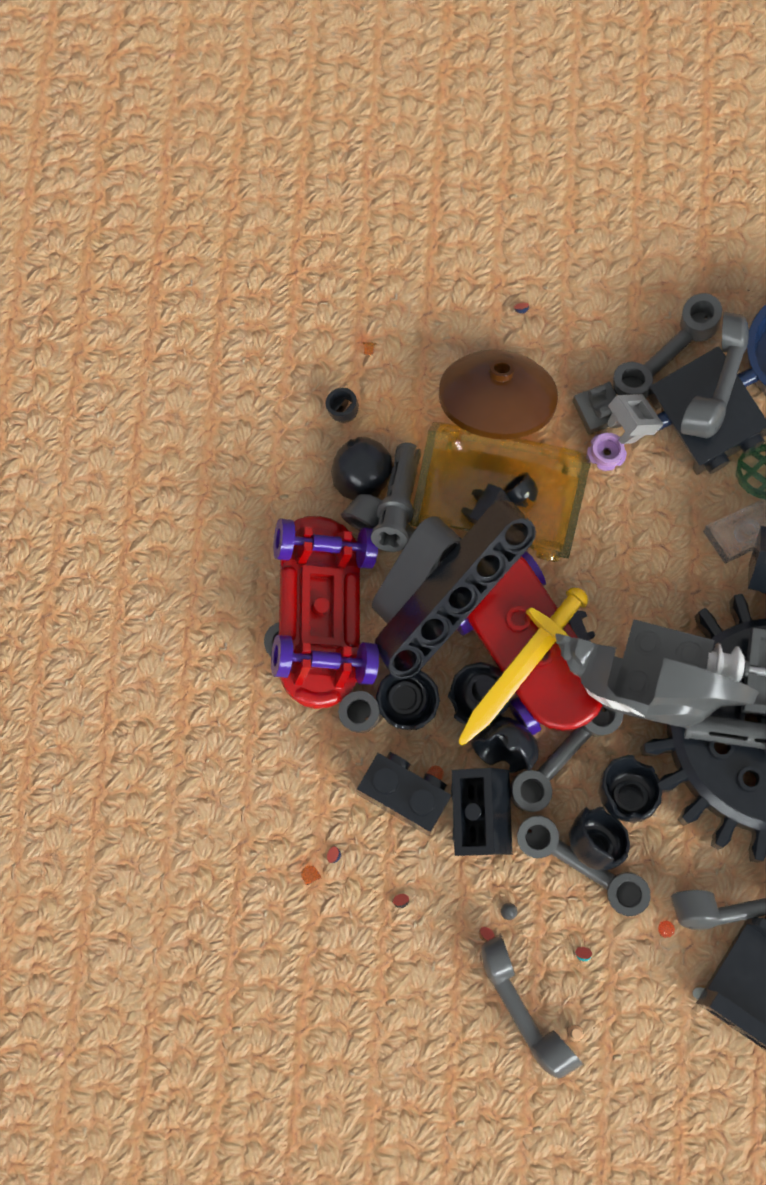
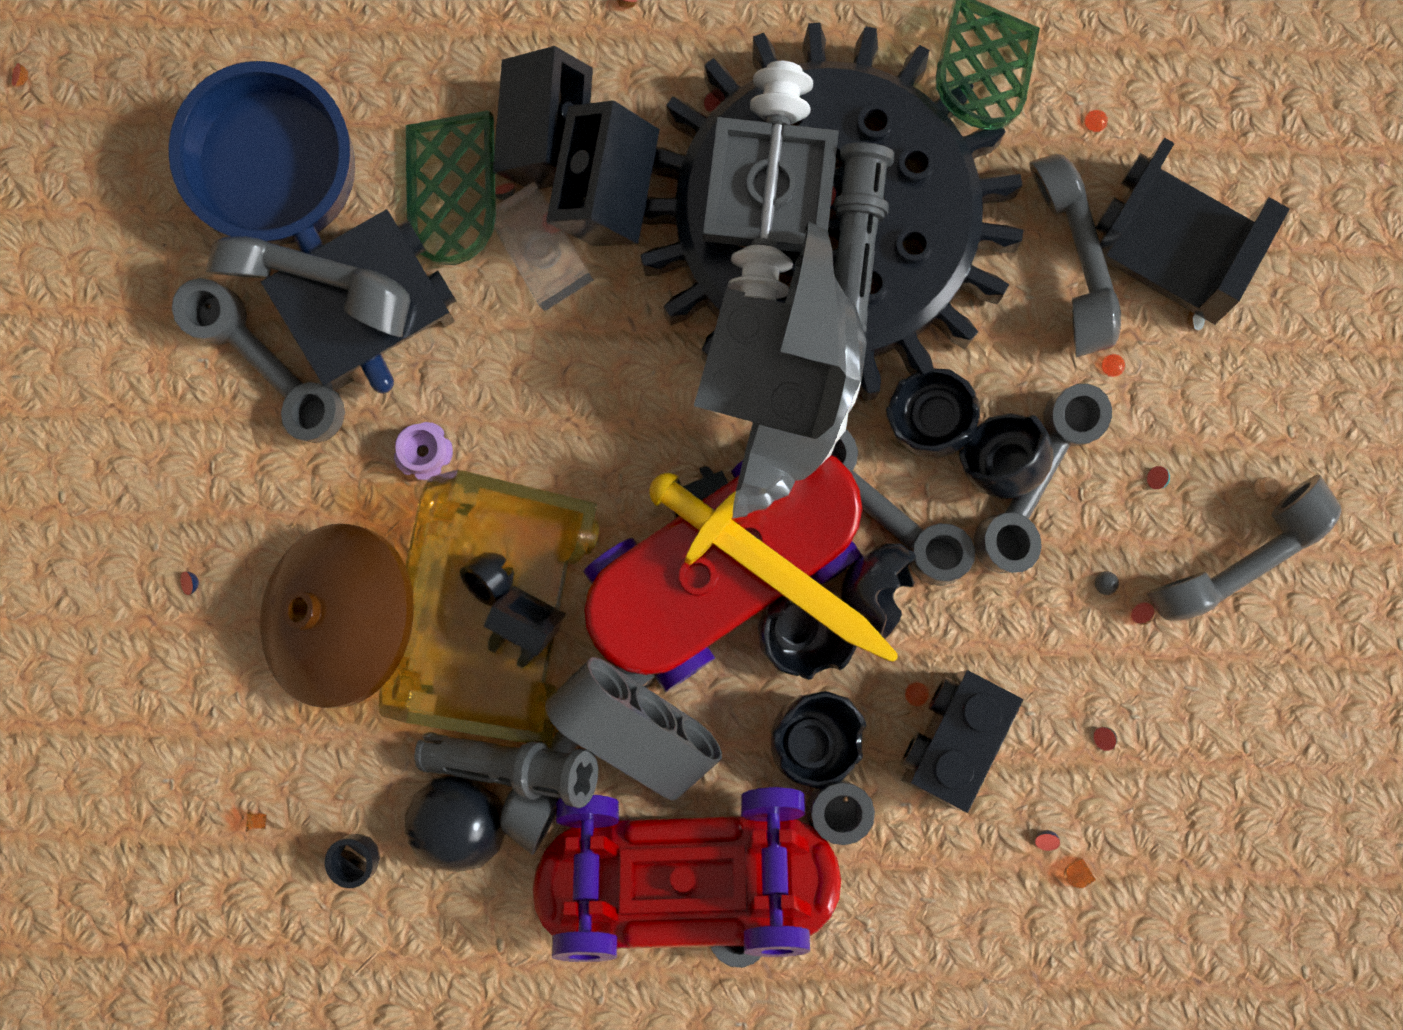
camera: 90 degrees left, 5 degrees up
(455, 589) = (662, 672): black beam -> none
(481, 812) = (984, 624): black brick -> none
(593, 407) = (353, 463): dark grey tile -> none
(634, 416) = (372, 407): light grey tile -> none

